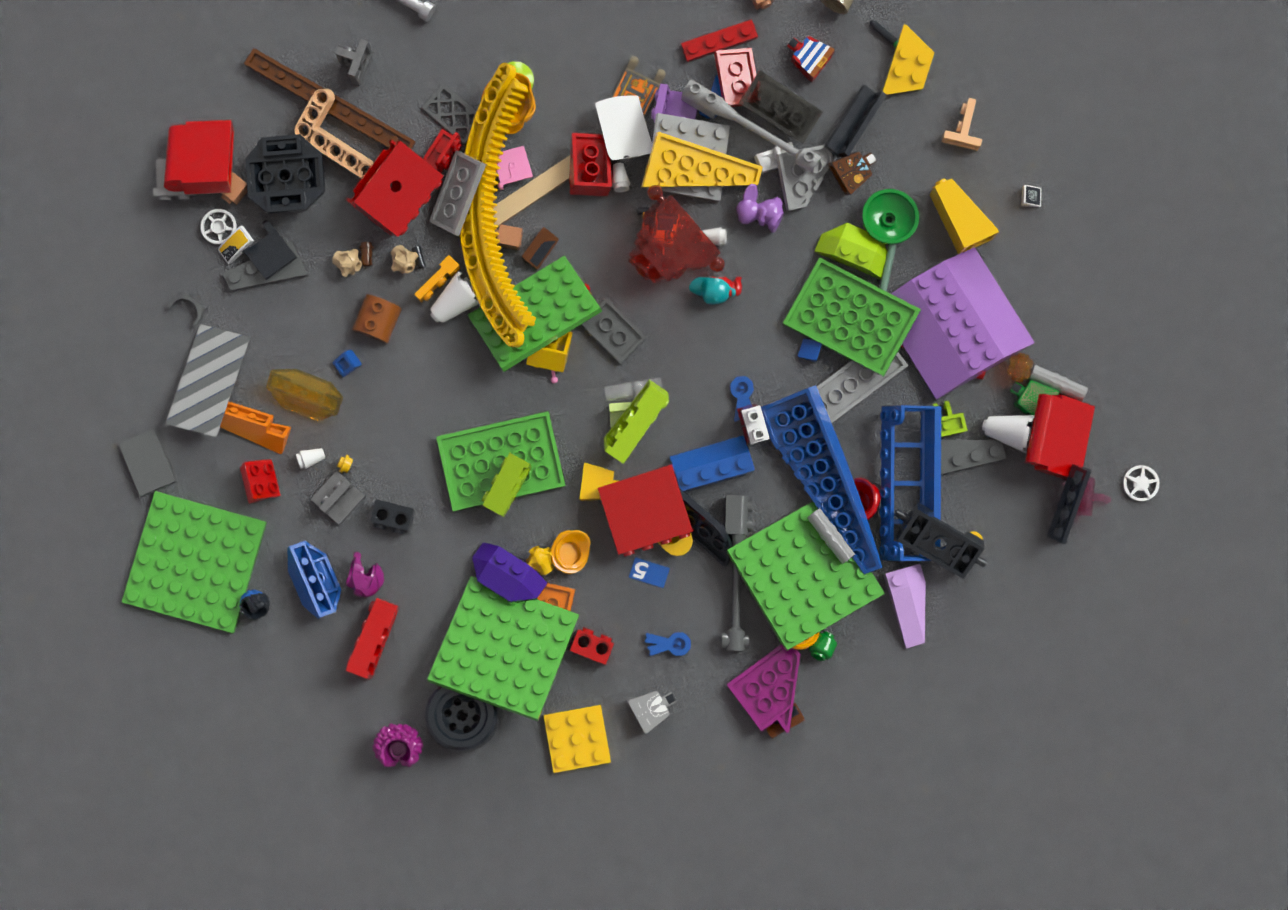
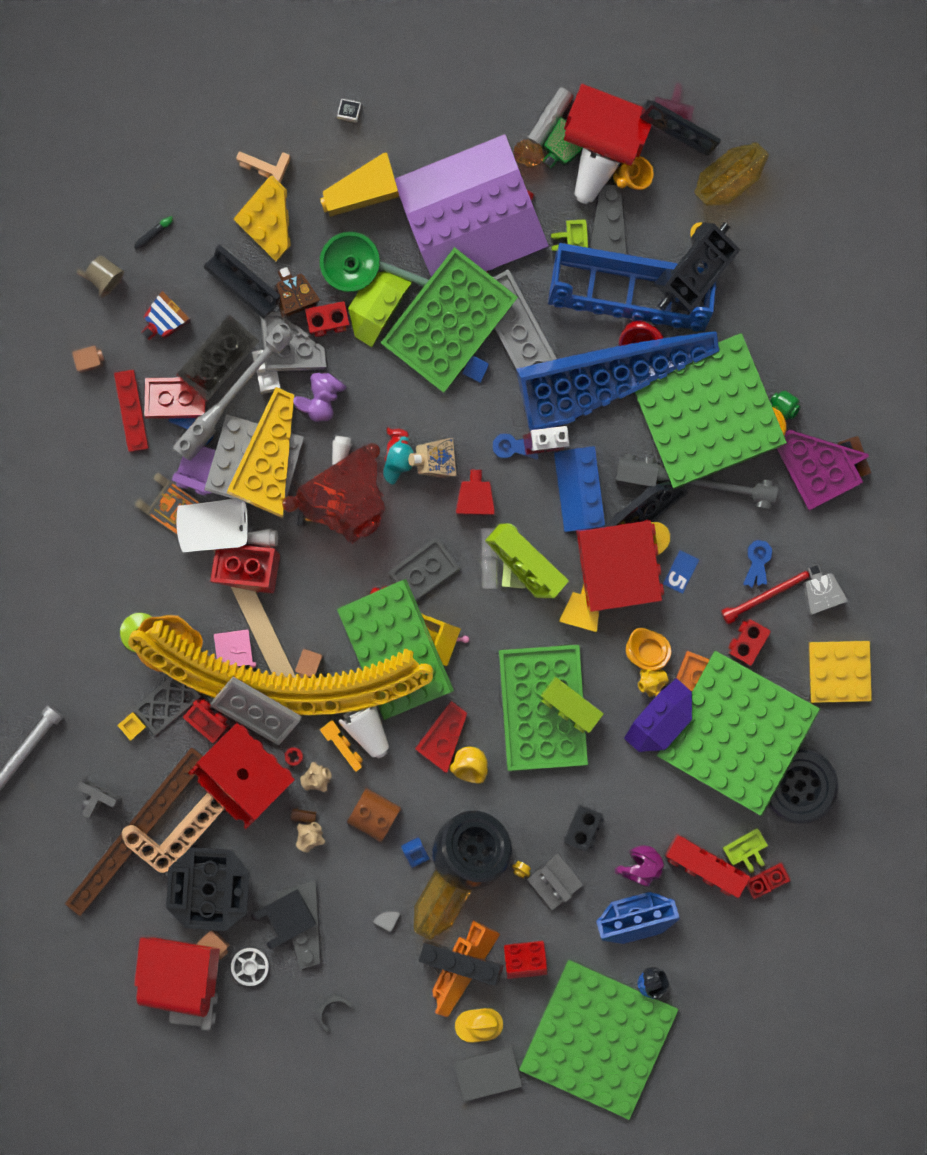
camera: 80 degrees left, 5 degrees up
(192, 449) = (479, 1025): none -> yellow piece
(207, 380) = (412, 999): sticker -> none
(235, 244) = (273, 951): slope -> none
(245, 426) = (461, 964): none -> black arch
(279, 346) = (387, 919): none -> light grey tile
(310, 457) = (509, 905): white cone -> none
(337, 402) = (457, 865): none -> black wheel
(367, 699) = (768, 880): none -> red slope
(396, 674) = (745, 847): none -> lime hinge
(397, 744) = (819, 855): magenta hair -> none
(418, 231) = (288, 758): none -> red bush
(420, 260) = (319, 760): black piece -> none
(427, 84) = (131, 726): none -> yellow plate
(436, 400) = (470, 765): none -> yellow piece
(459, 372) = (442, 737): none -> red wing
(540, 248) = (325, 633): reddish brown slope -> none
(616, 625) = (730, 614): none -> red piece
(690, 367) = (475, 496): none -> red torso
(719, 323) = (435, 458): none -> tan torso
(831, 536) = (675, 378): light grey axle -> none
(839, 204) = (327, 312): none -> red brick
(907, 597) = (748, 309): lavender wedge -> none
(909, 64) = (188, 215): yellow wing -> none
(917, 135) = (267, 218): none -> yellow plate
(1016, 470) = (636, 176): none -> light orange piece
(1032, 561) = (731, 174): none -> clear yellow wedge
(1141, 483) = (666, 49): white wheel -> none

